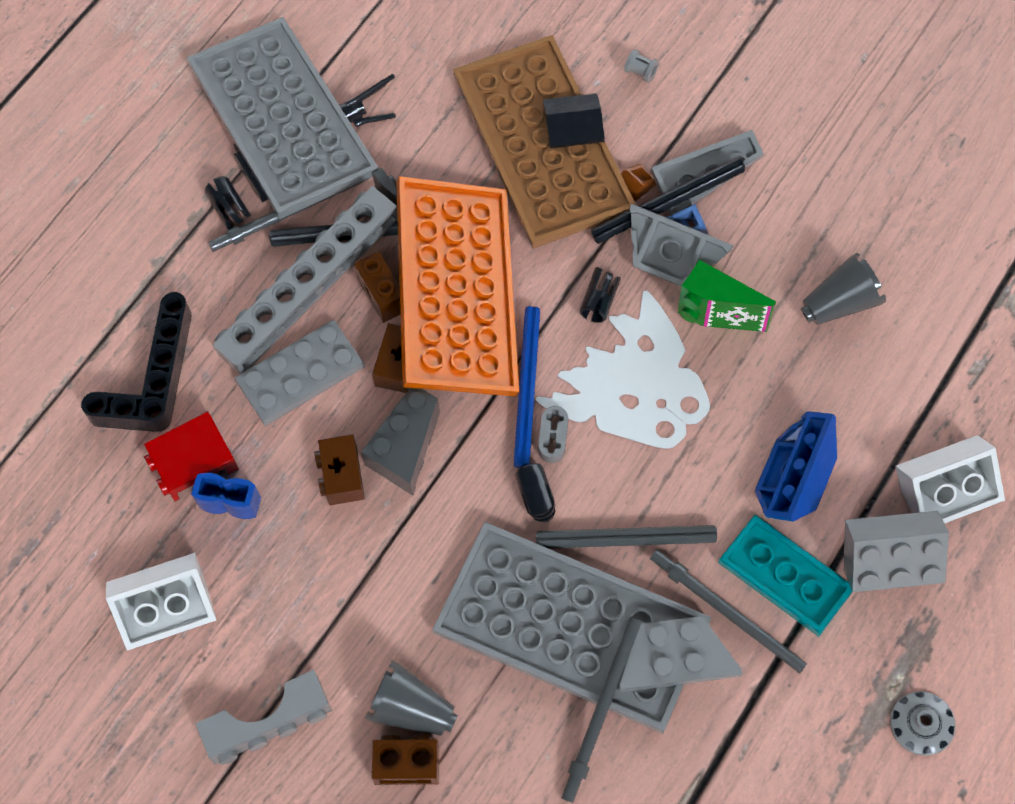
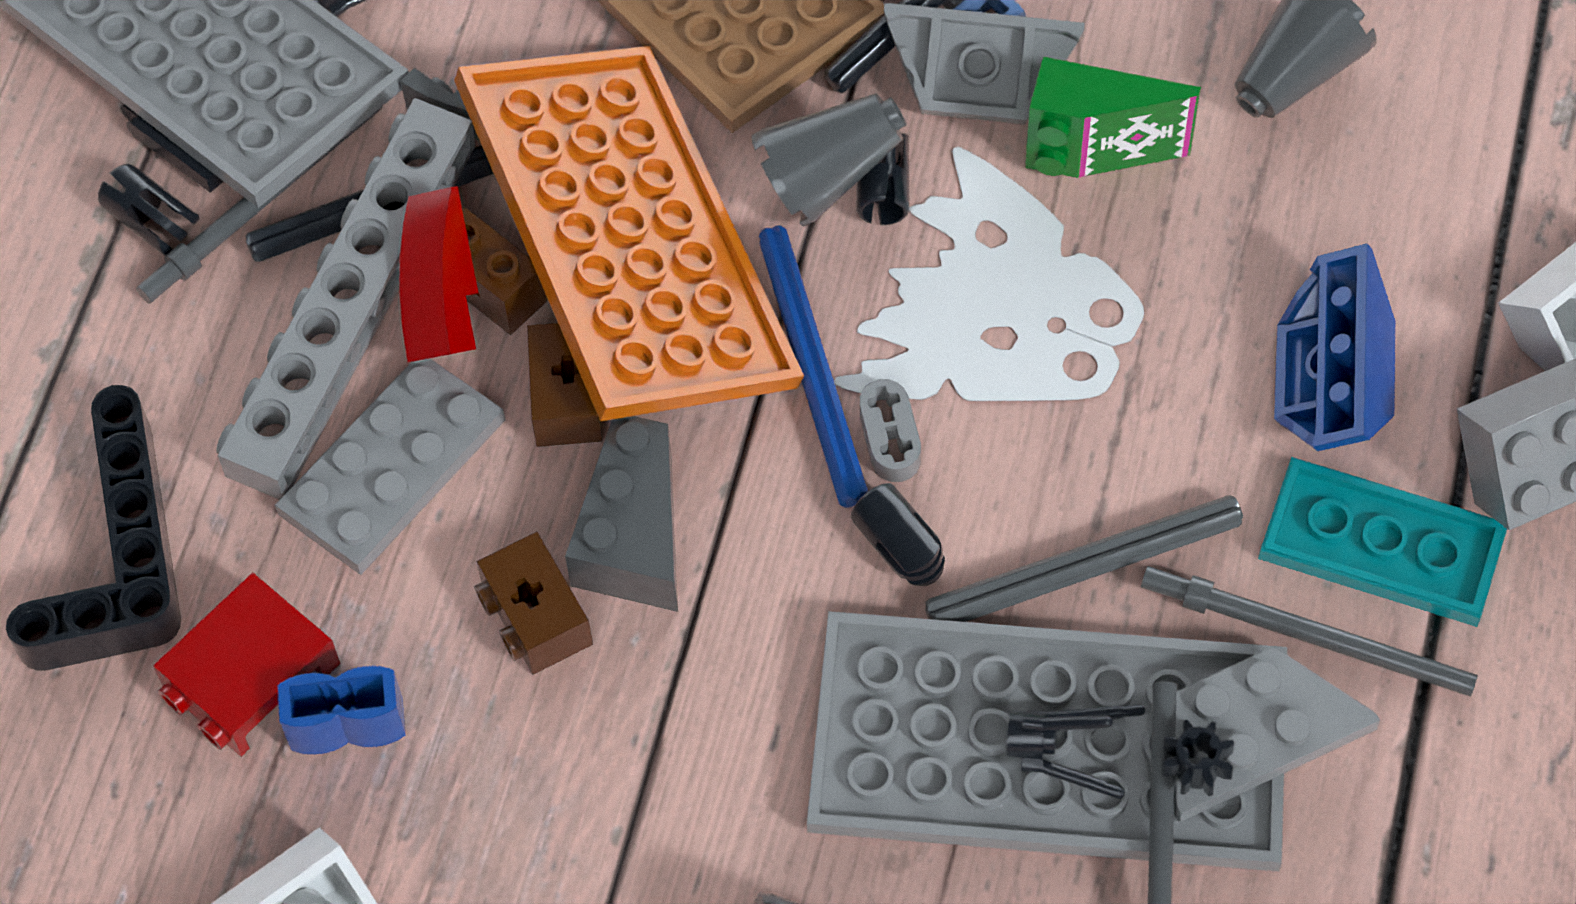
camera: 20 degrees left, 5 degrees down
(349, 285) = (435, 276): none -> red slope
(563, 621) = (1035, 734): none -> black plant
(570, 277) = (828, 152): none -> dark grey cone
(636, 655) = (1208, 769): none -> black gear

